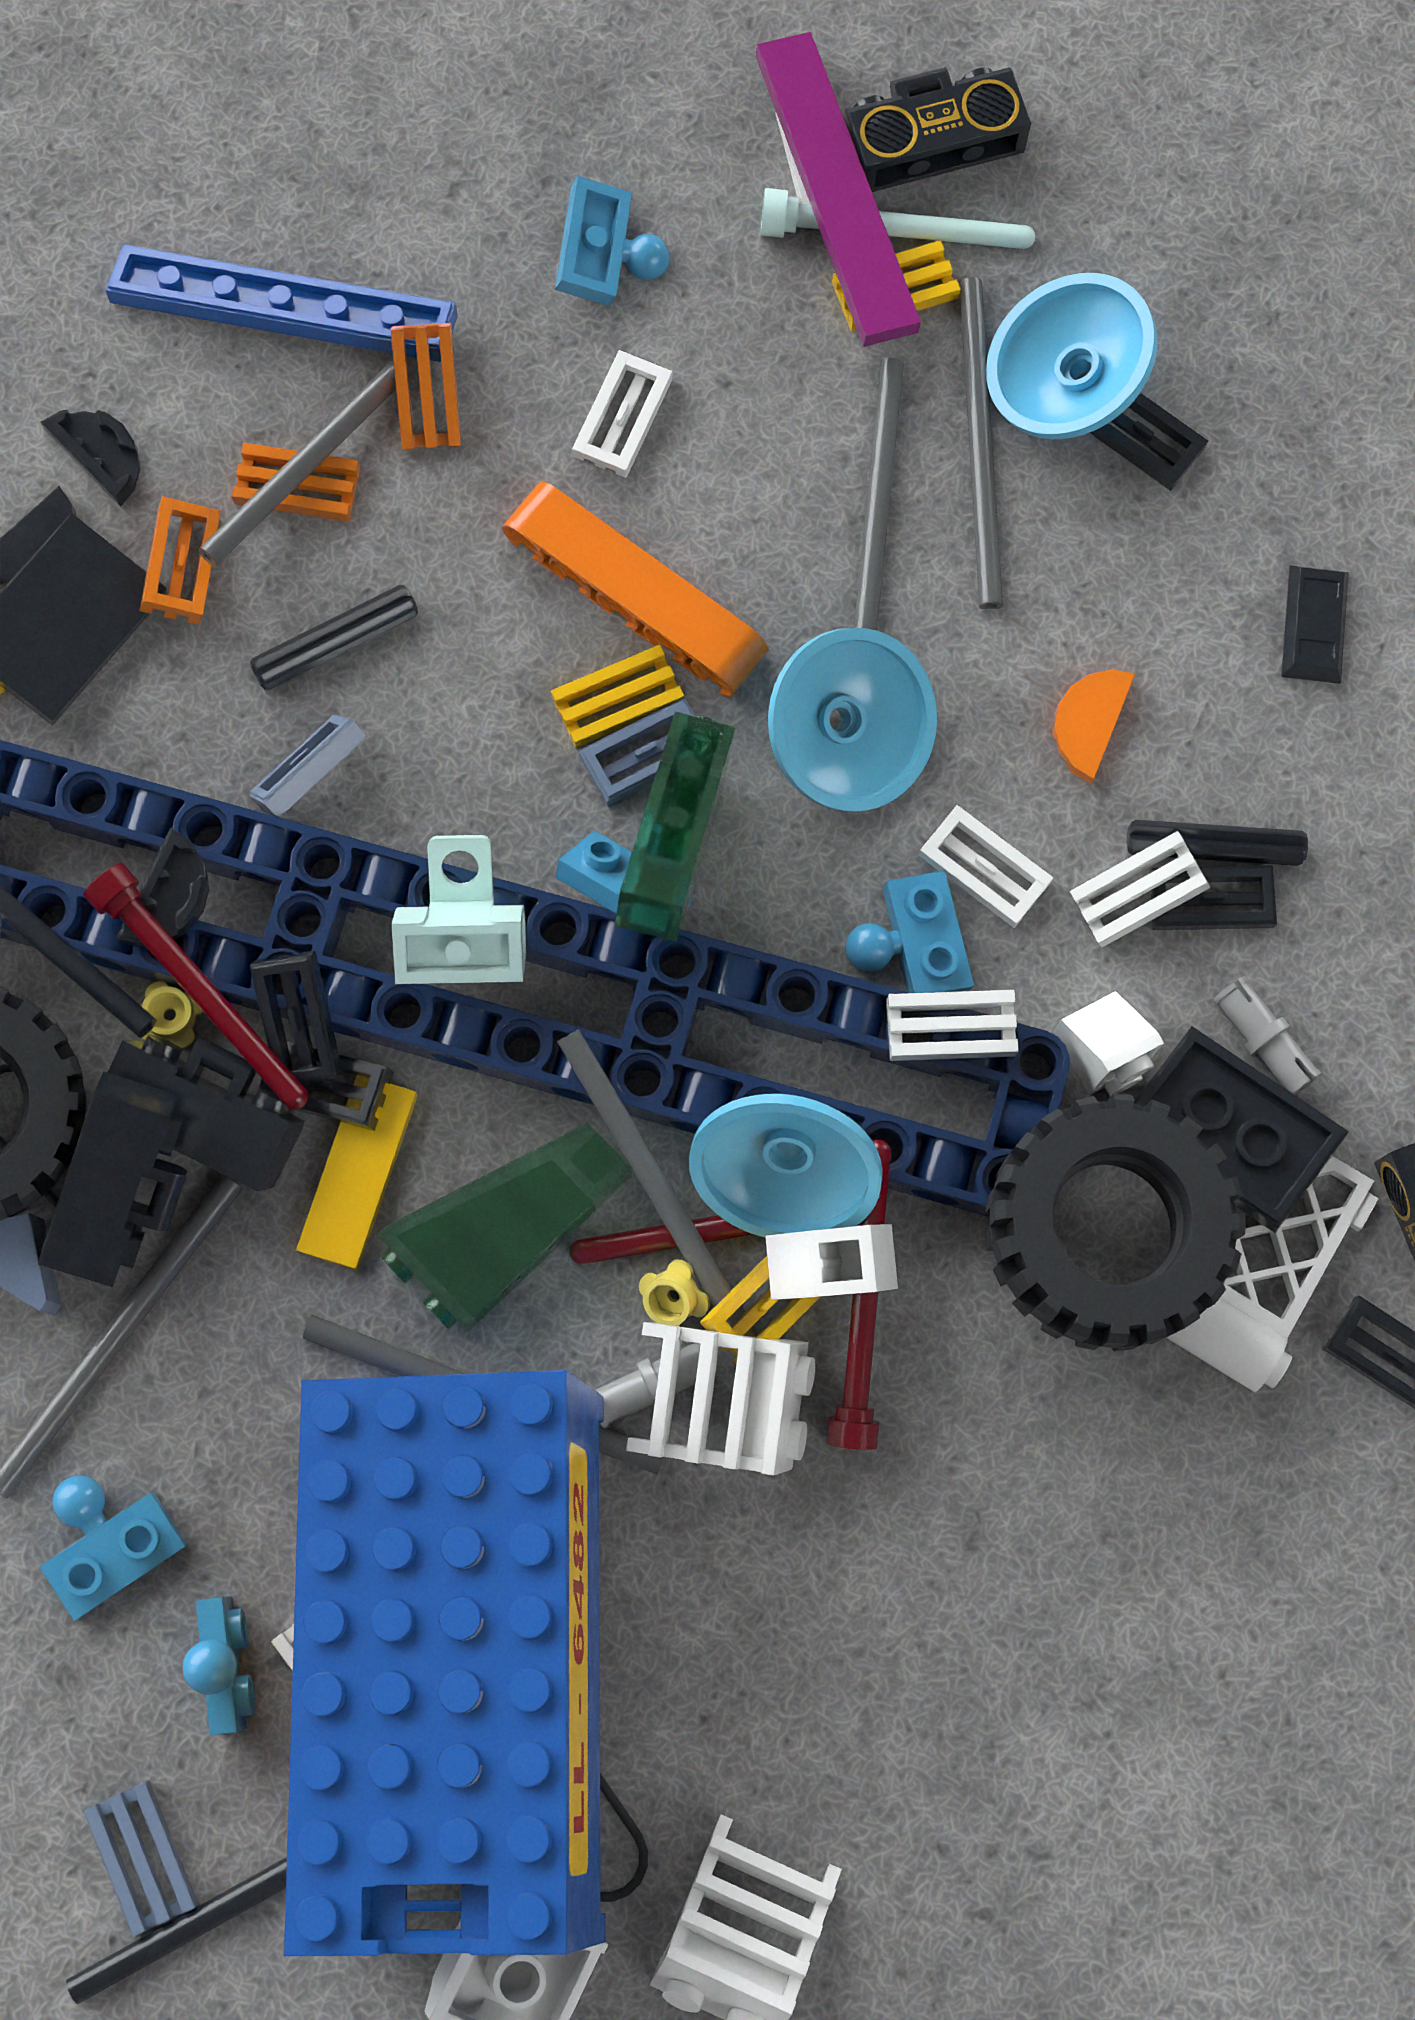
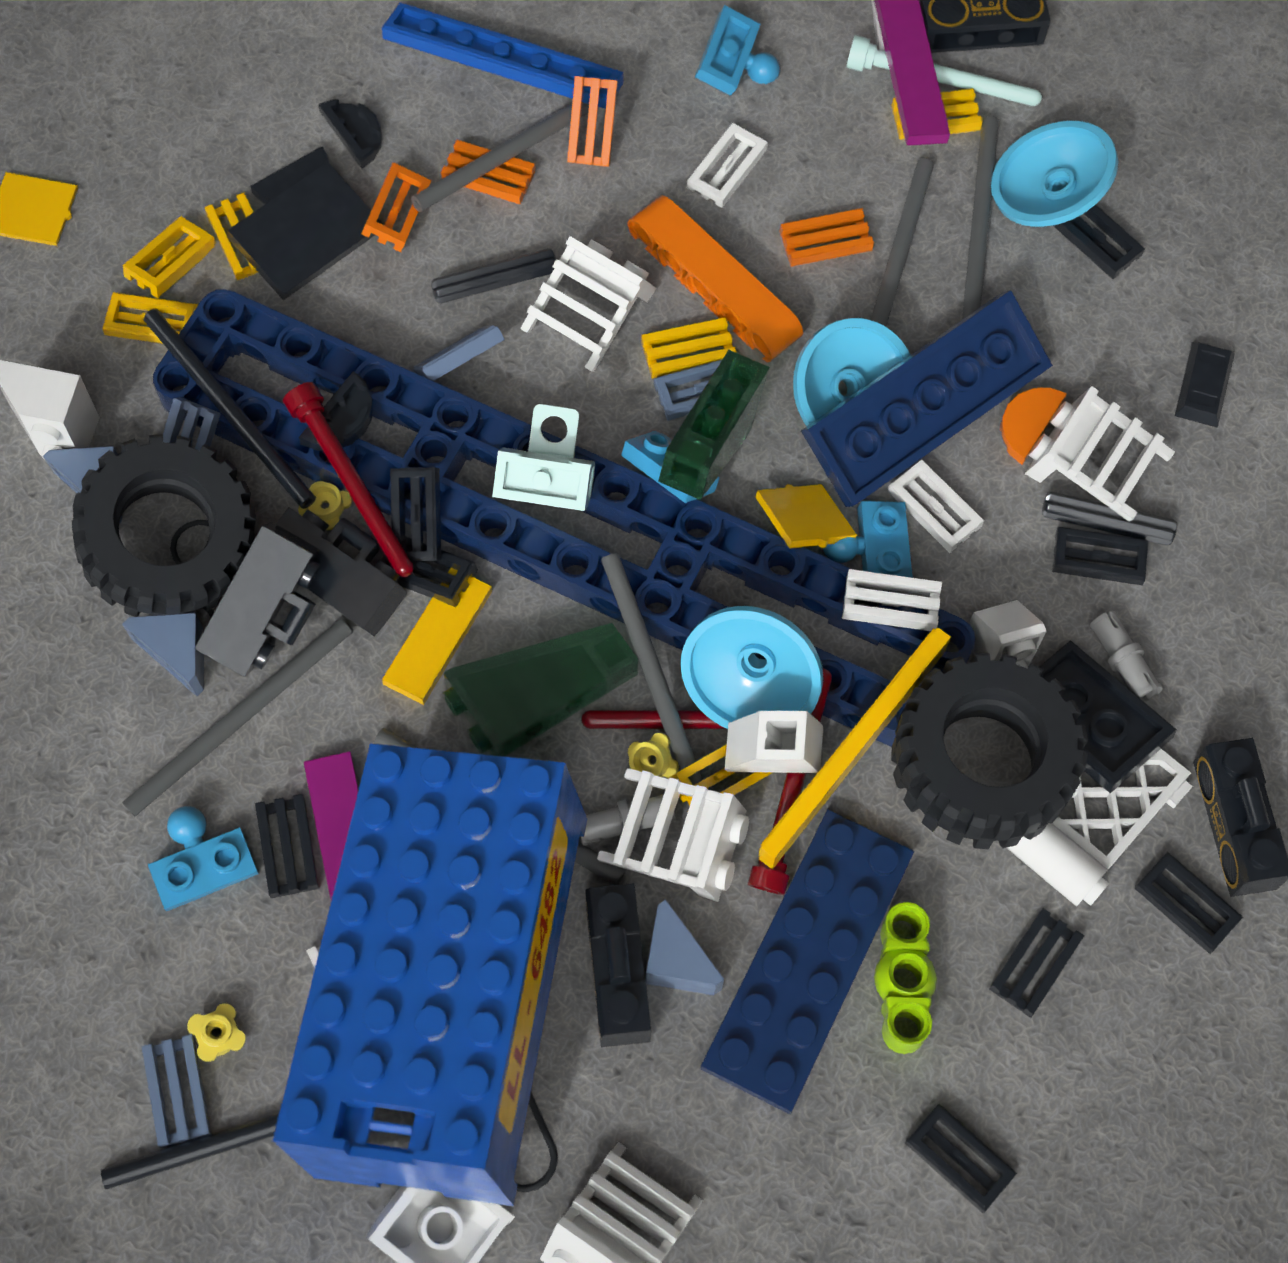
camera: 10 degrees right, 10 degrees down
(157, 1772) = (213, 1046): none -> light yellow plate
(197, 1451) = (281, 807): none -> black tile
(214, 1665) = (261, 950): dark azure plate -> none
(269, 1438) = (333, 799): none -> magenta tile
(485, 617) = (595, 270): none -> white plate
(679, 1588) = (617, 965): none -> black piece
(752, 1561) = (677, 958): none -> sand blue slope
(769, 477) = (813, 225): none -> orange tile
(816, 917) = (805, 515): none -> yellow piece
(922, 1528) = (807, 962): none -> dark blue plate
(936, 1244) = (853, 748): none -> yellow tile
(951, 719) = (926, 398): none -> dark blue plate
(1066, 1561) = (909, 955): none -> lime piece
(1108, 1721) = (994, 1189): none -> black tile
(1130, 868) = (1043, 522): white tile -> none
(1155, 744) = (1075, 437): none -> white plate
(1234, 1426) = (1058, 929): none -> black tile

